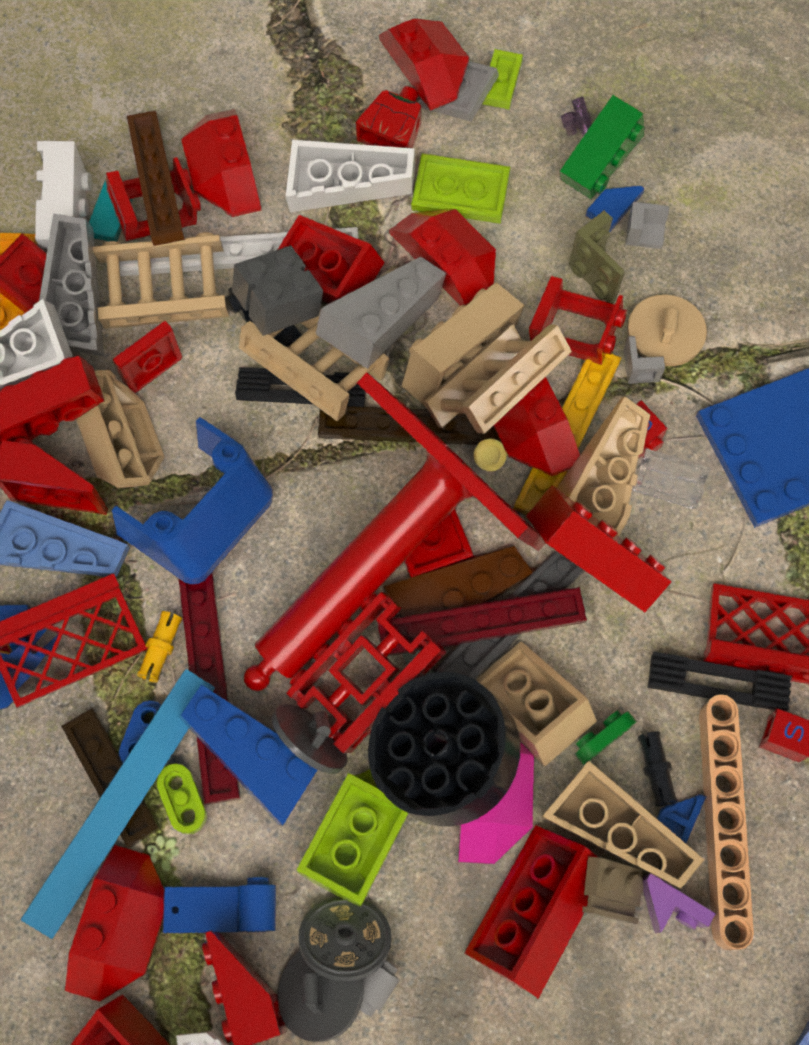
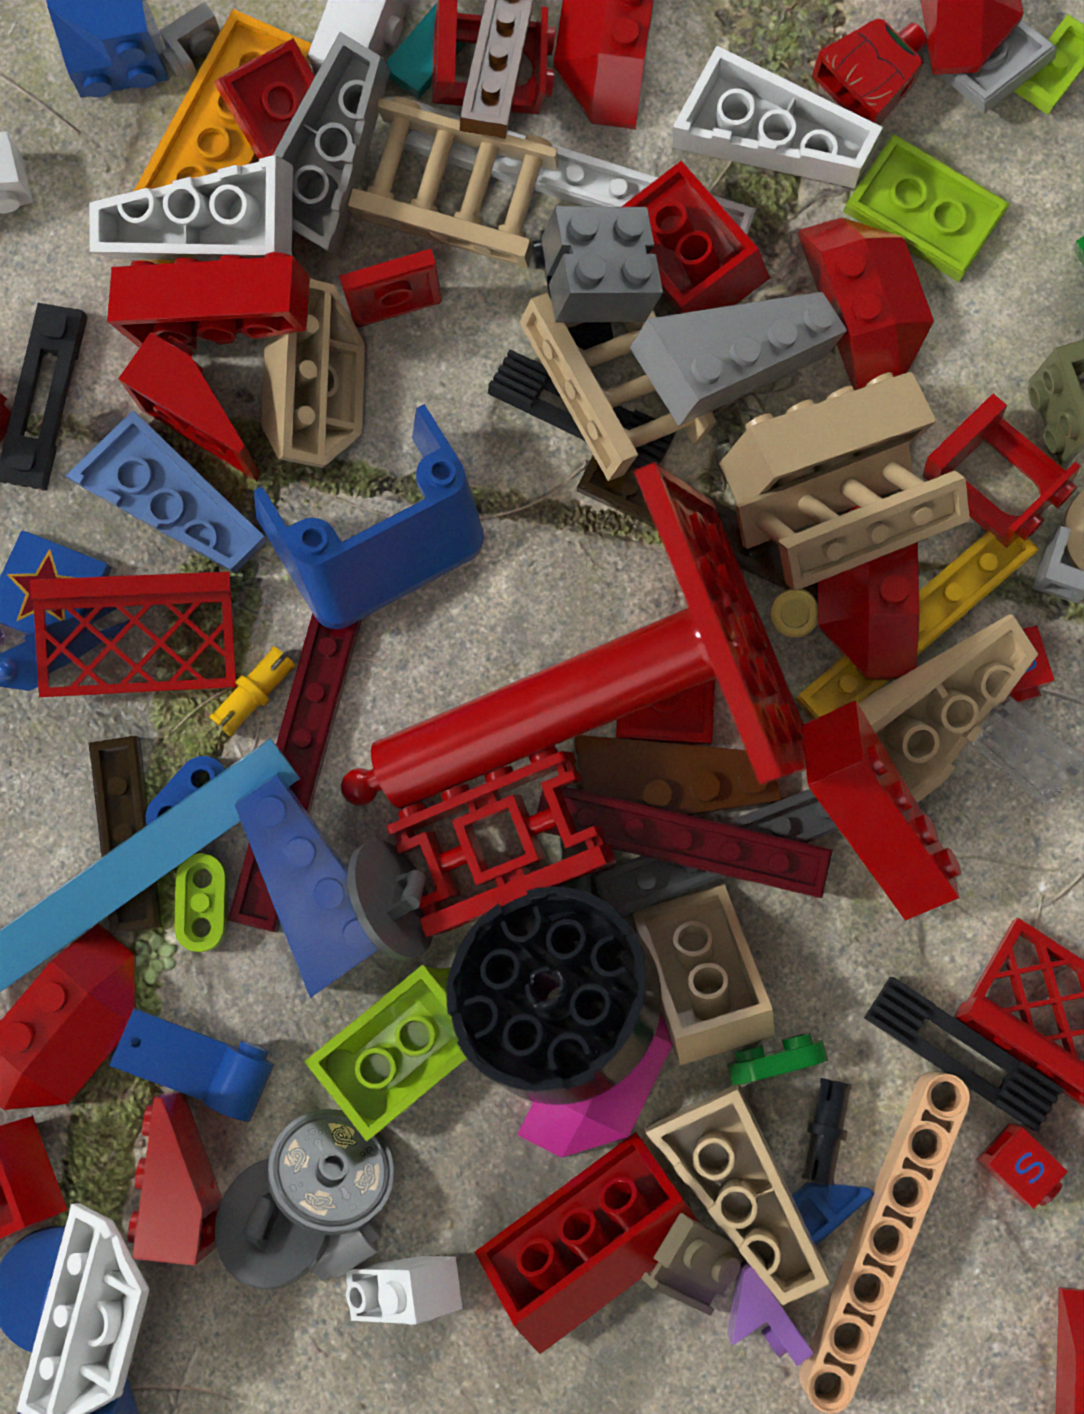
camera: 25 degrees right, 10 degrees up
(427, 998) = (404, 1290): none -> white slope

